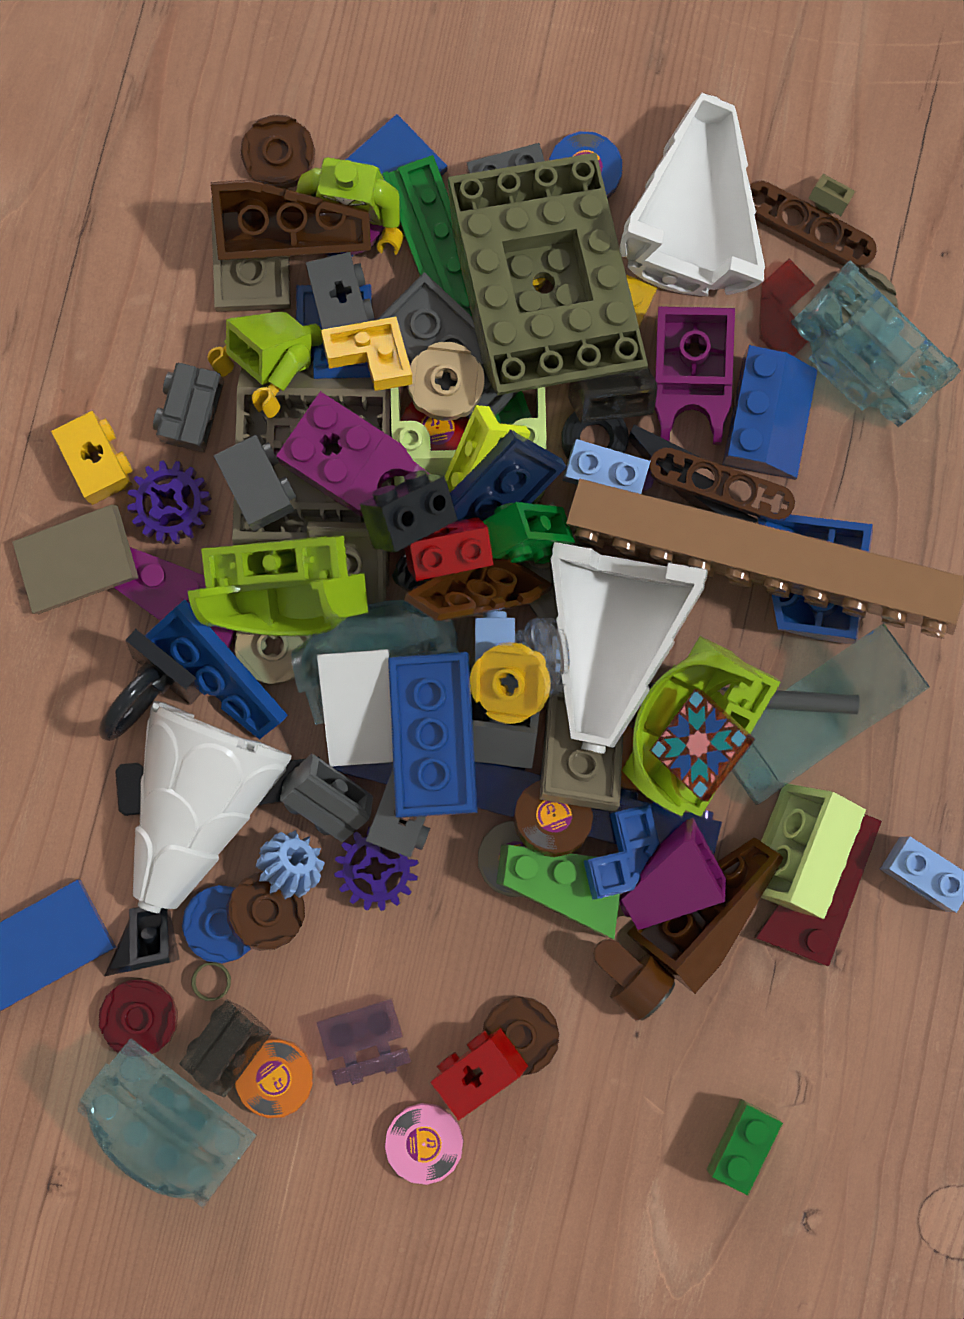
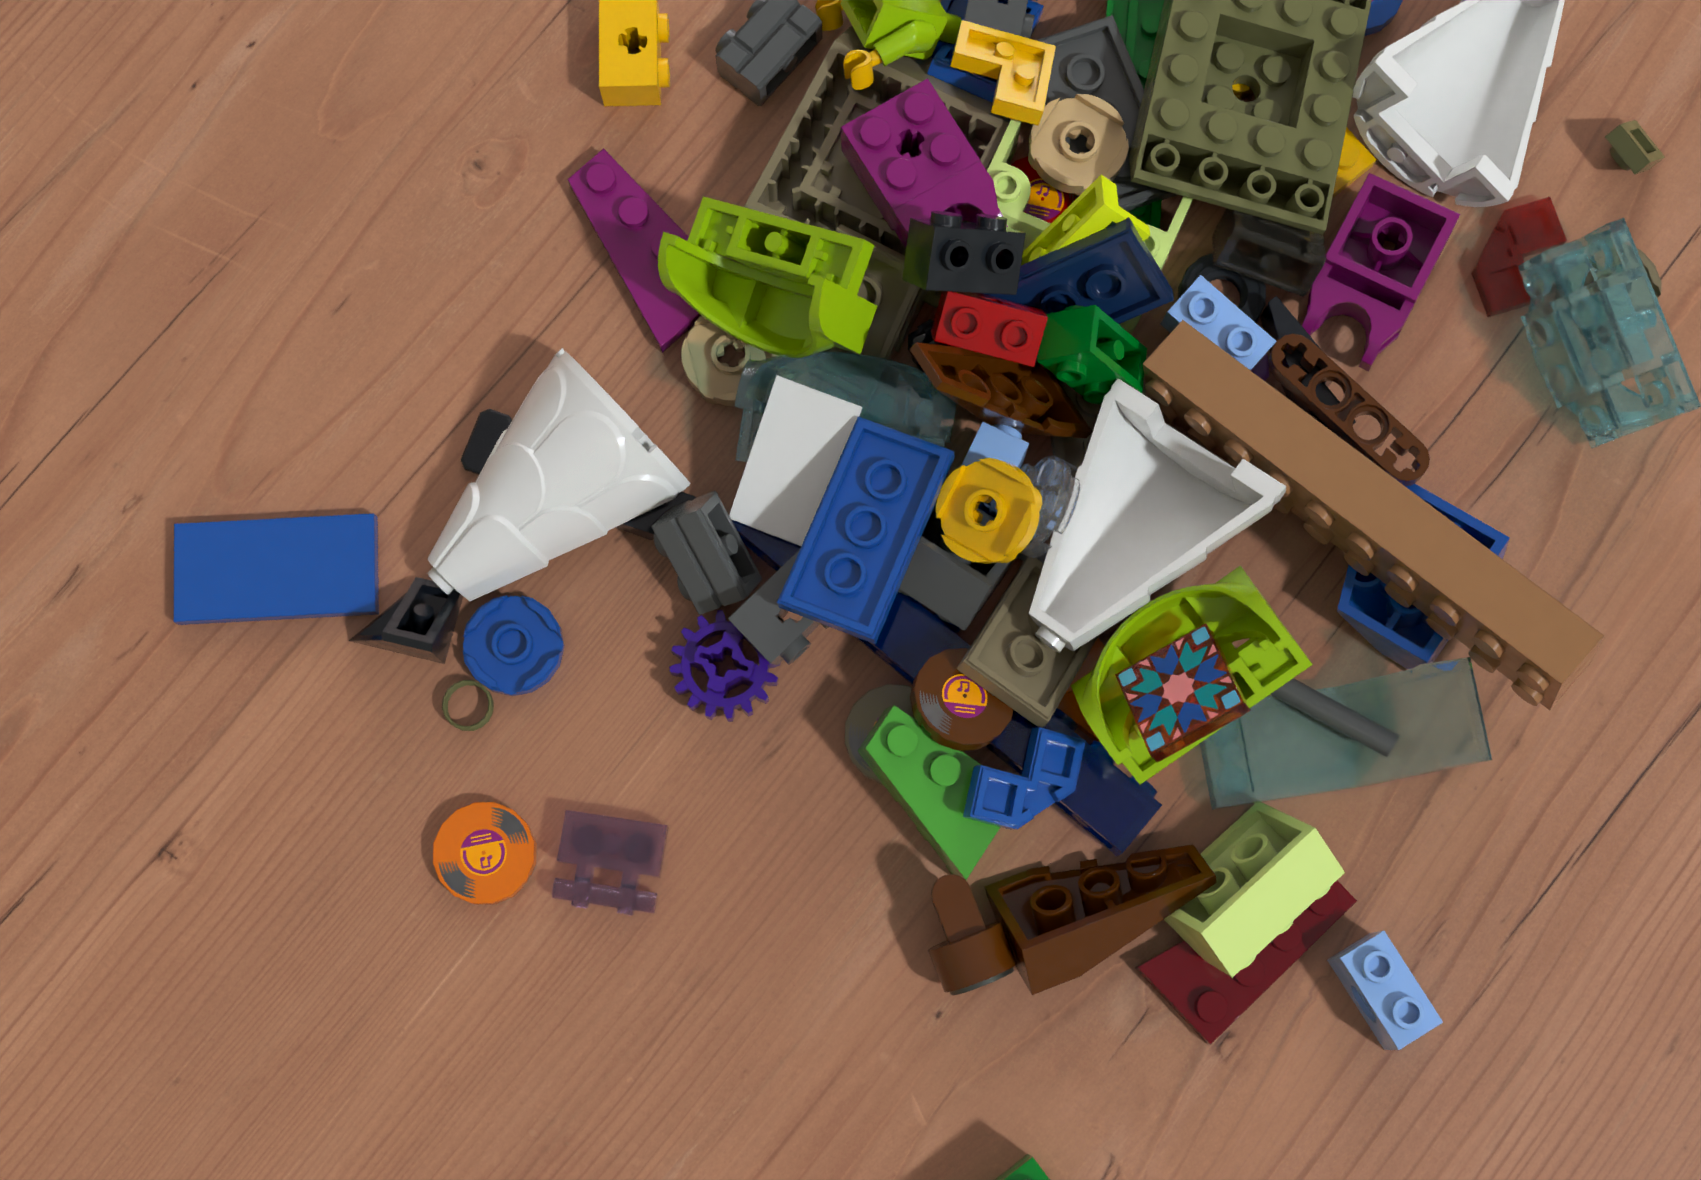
camera: 25 degrees right, 5 degrees down
(75, 559) = (554, 153): dark tan tile -> none
(139, 1012) = (362, 707): dark red tile -> none
(153, 678) = (585, 320): black tile -> none
(159, 513) = (706, 123): dark purple gear -> none
(161, 1129) = (327, 843): clear light blue piece -> none
(216, 670) = (645, 328): blue wing -> none
(225, 1048) = (444, 787): clear smoke brick -> none
(255, 483) = (801, 151): dark grey brick -> none
(261, 917) = (571, 653): reddish brown tile -> none
(290, 864) = (626, 610): light blue gear -> none
(424, 1143) = (621, 1017): bright pink tile -> none
(465, 1090) = (698, 967): red brick -> none
(529, 1029) = (798, 946): reddish brown tile -> none
(675, 880) = (1073, 844): magenta slope -> none
(770, 413) = (1447, 360): blue slope -> none
(811, 220) = (1599, 165): reddish brown beam -> none

